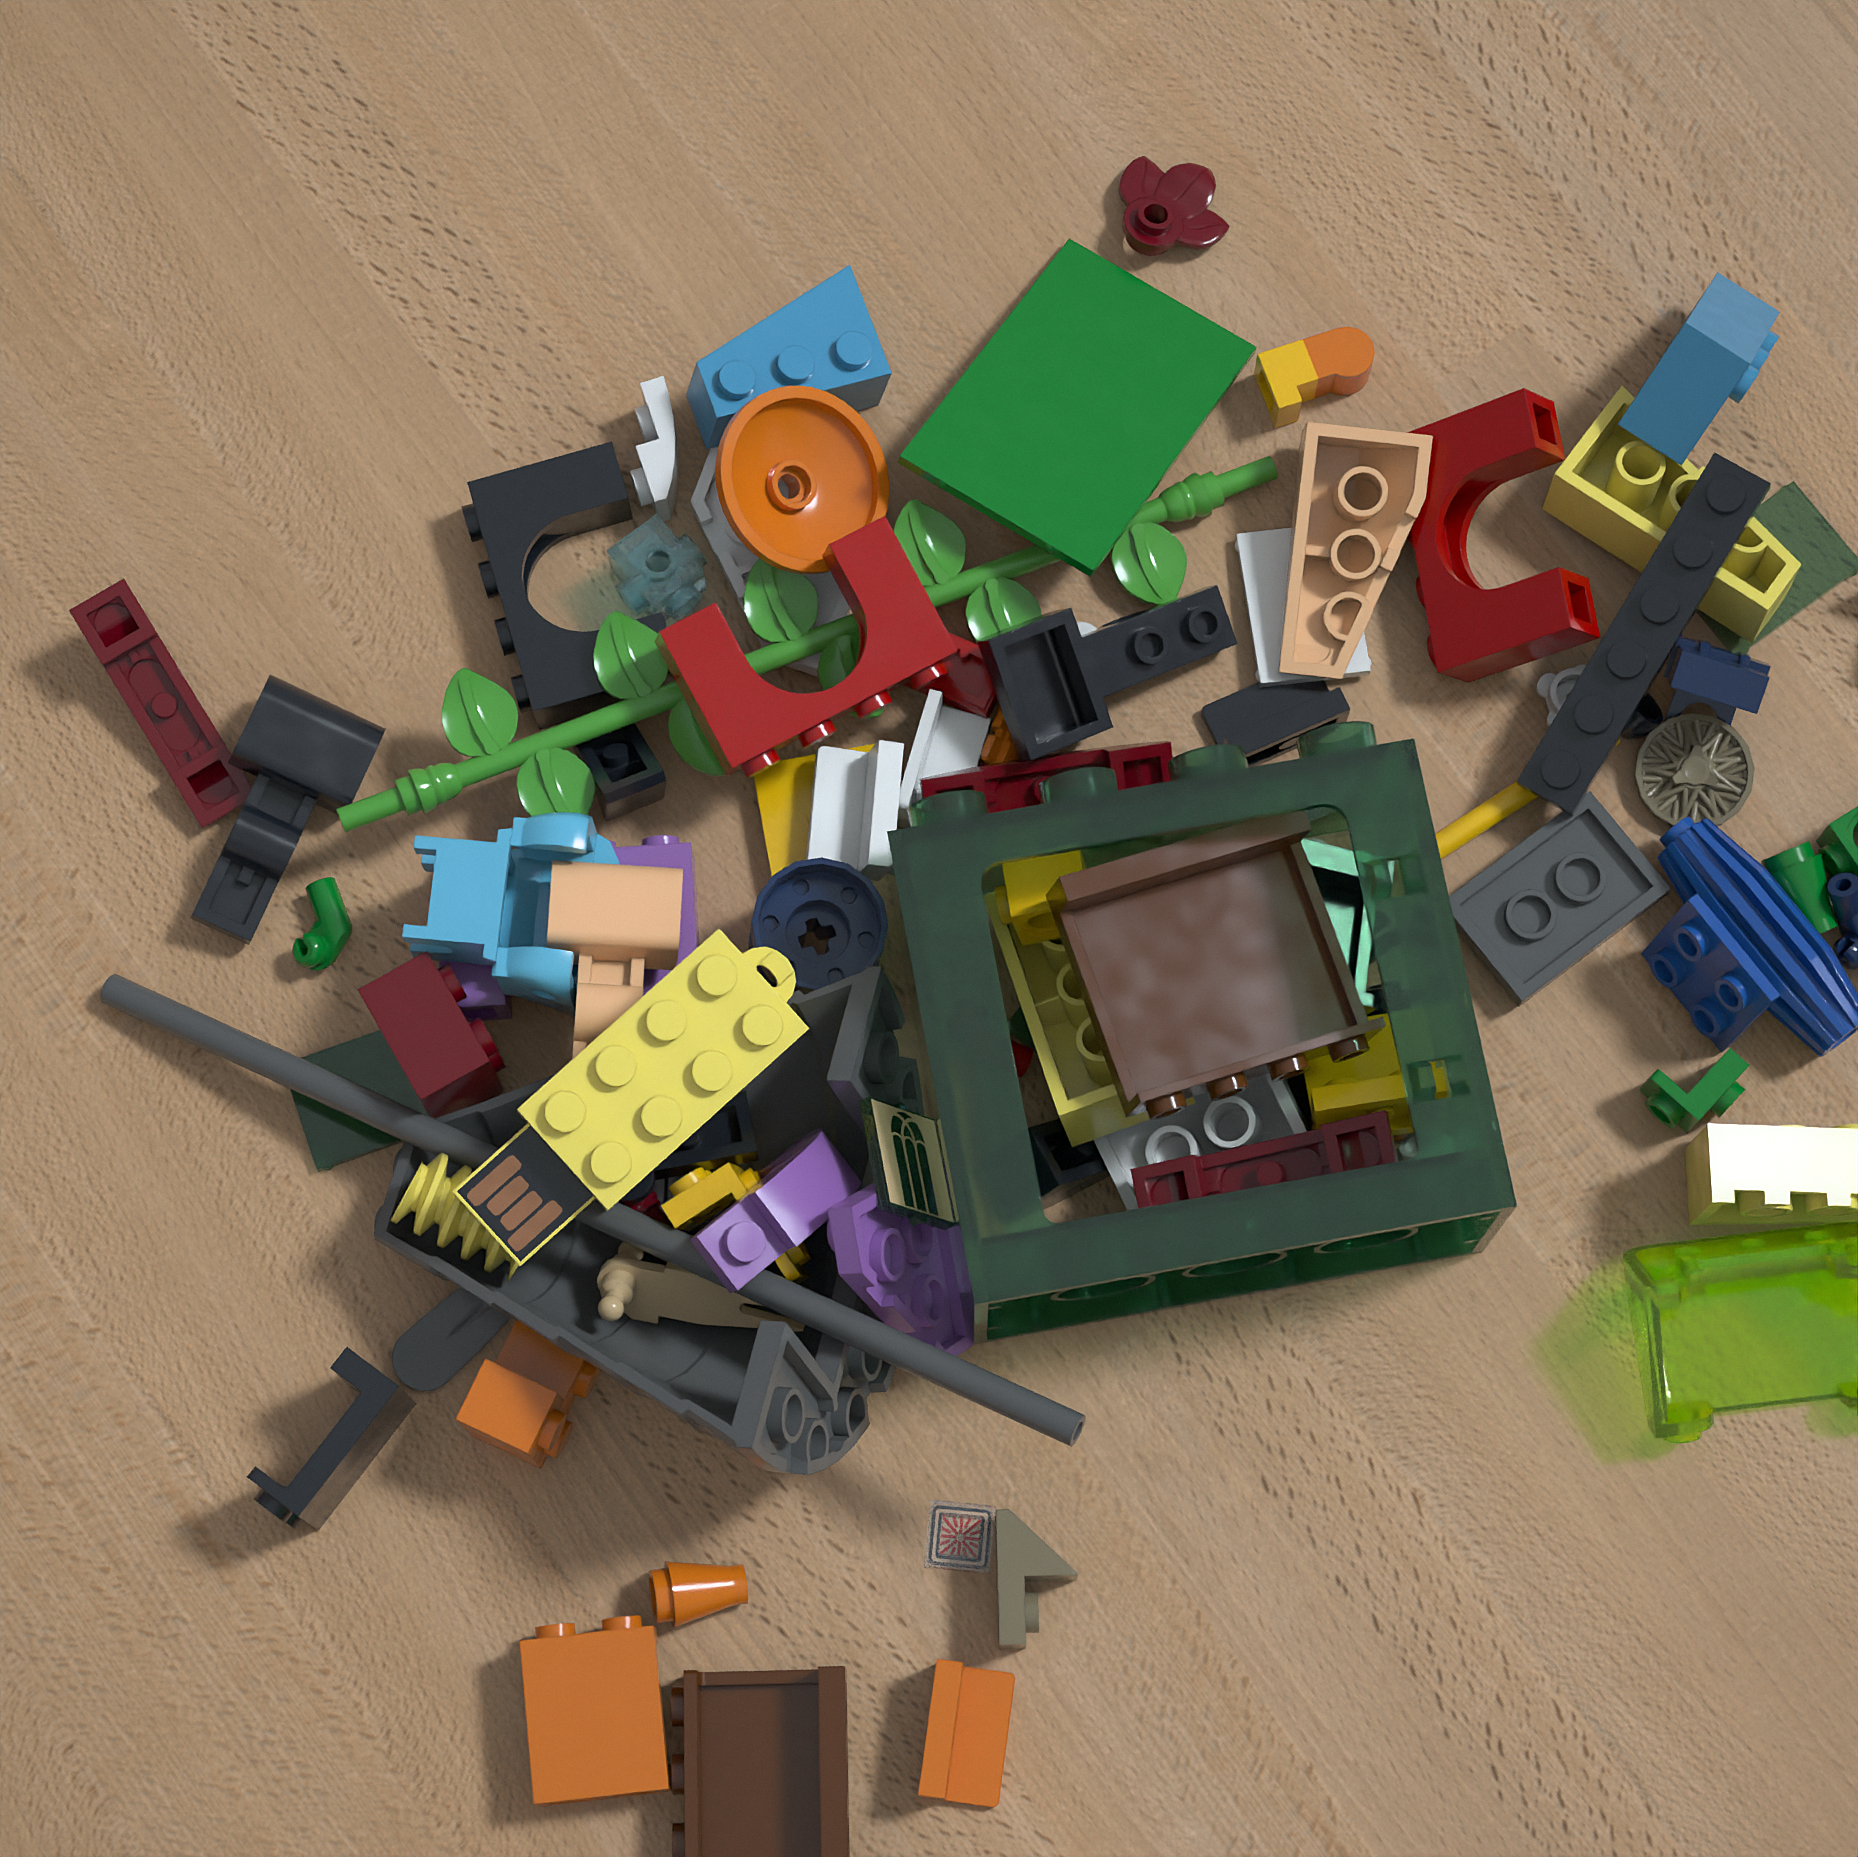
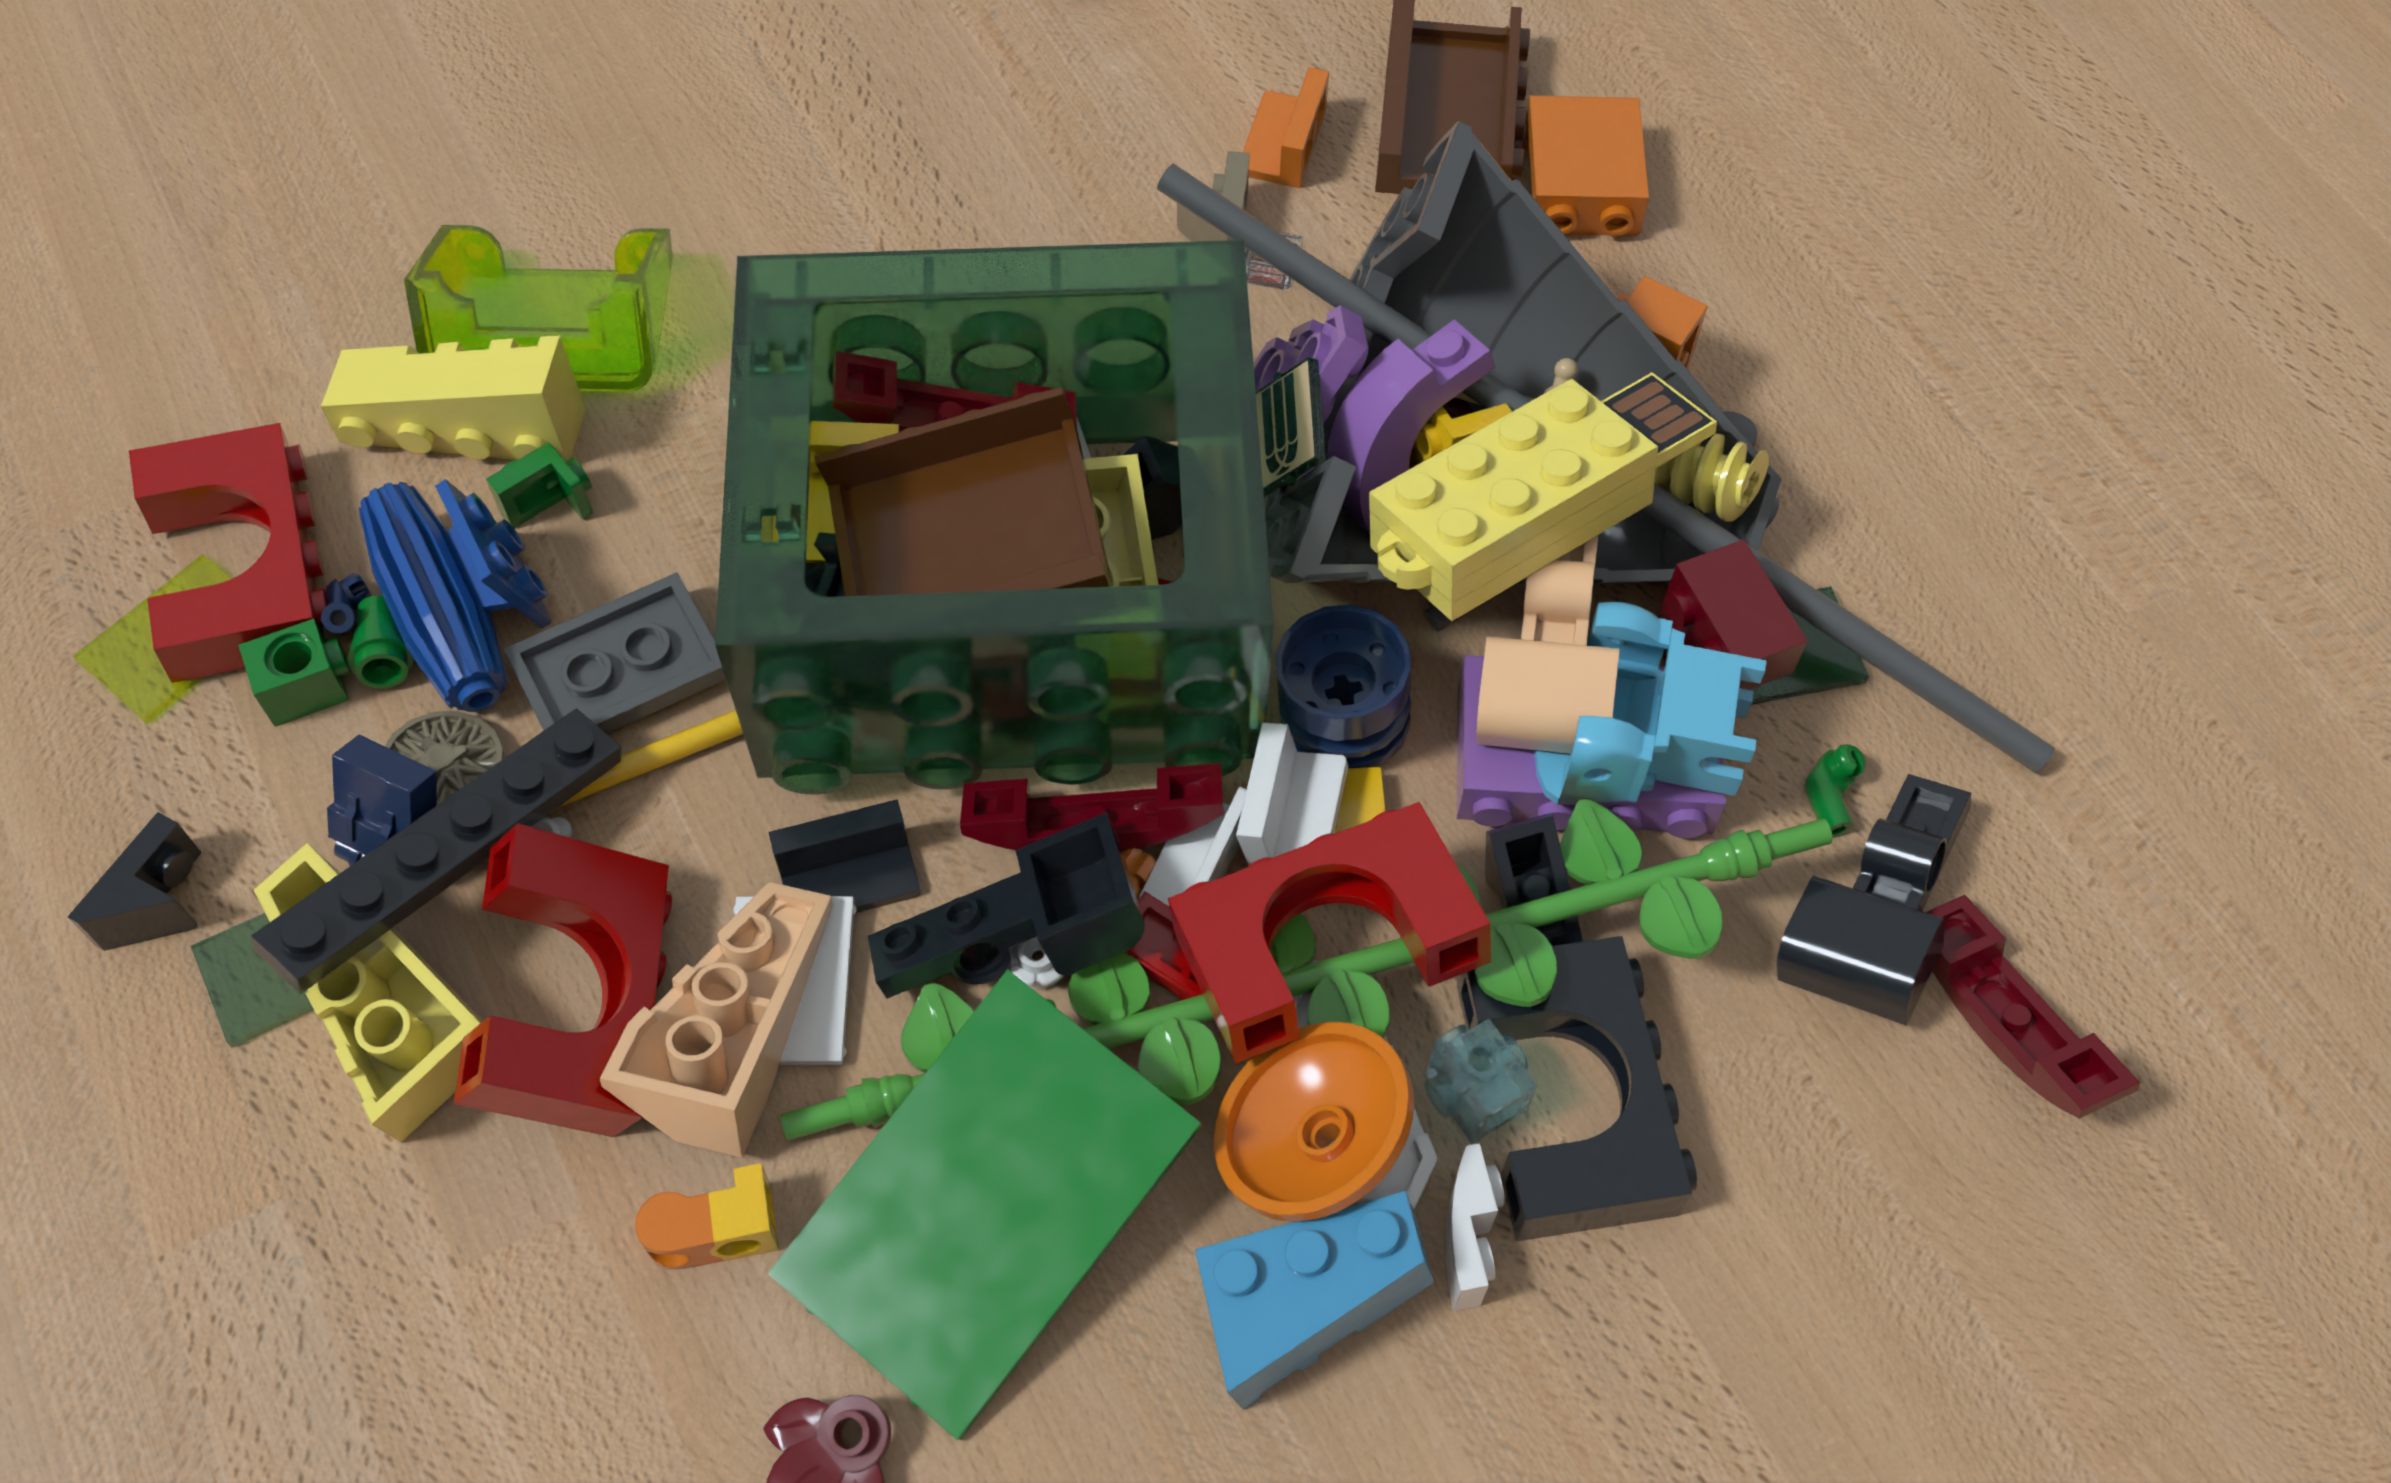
camera: 175 degrees left, 15 degrees down
(345, 1450) = (1831, 315): black panel -> none
(1706, 362) = (262, 1126): dark azure wedge -> none

